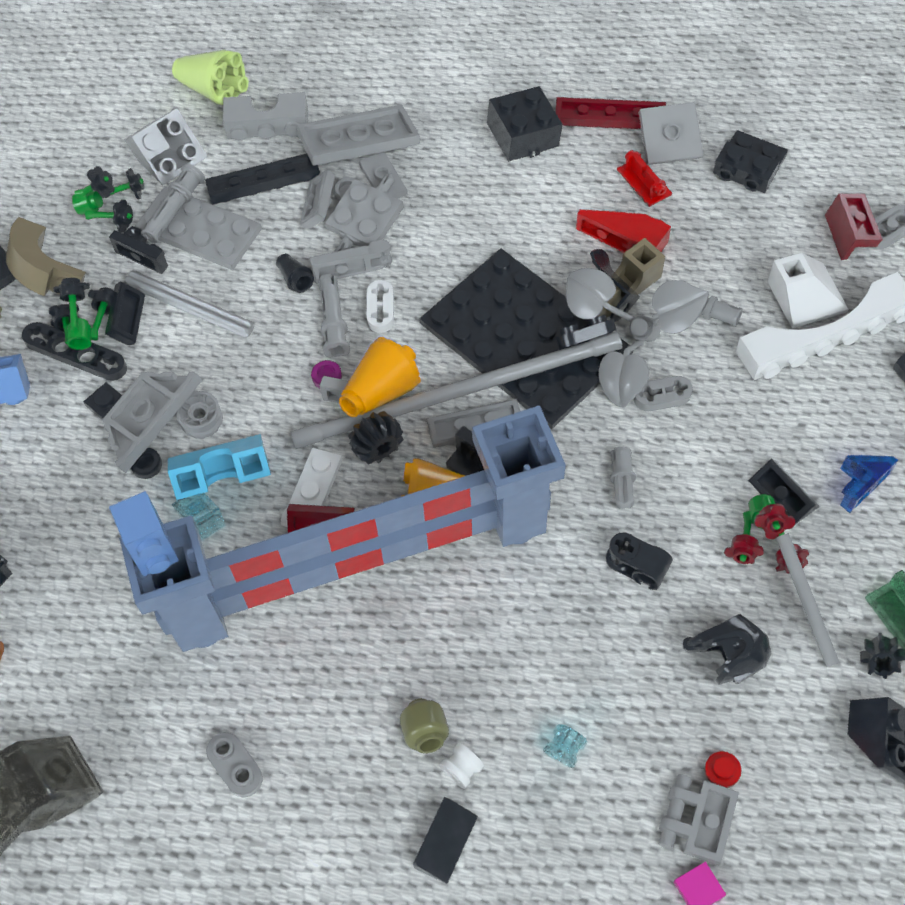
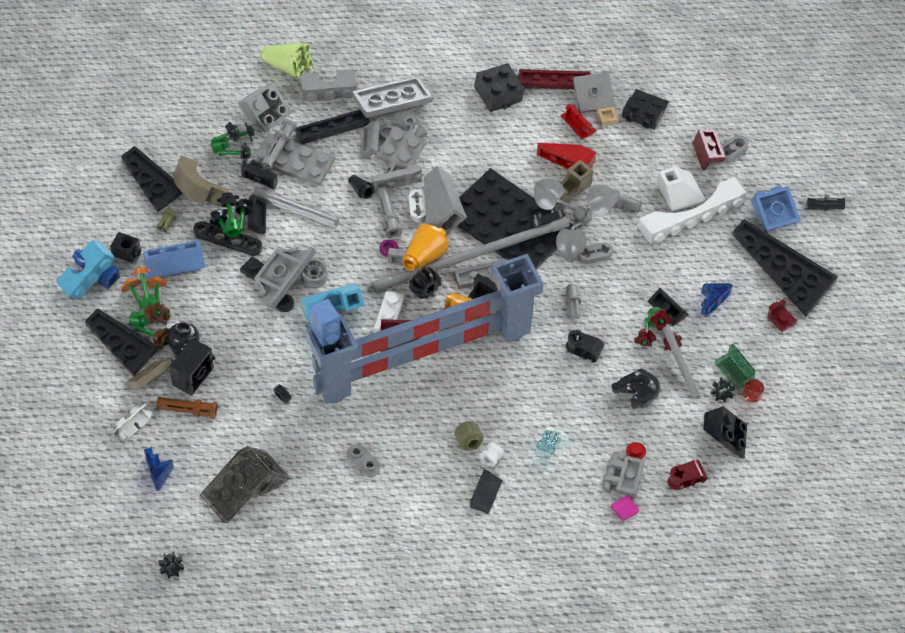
camera: 10 degrees left, 5 degrees down
(112, 629) = (282, 393): none -> black tile
(418, 301) = (442, 201): none -> light grey slope
(601, 261) = (554, 174): black piece -> none
(690, 171) = (607, 116): none -> tan tile
(821, 823) = (686, 475): none -> dark red piece

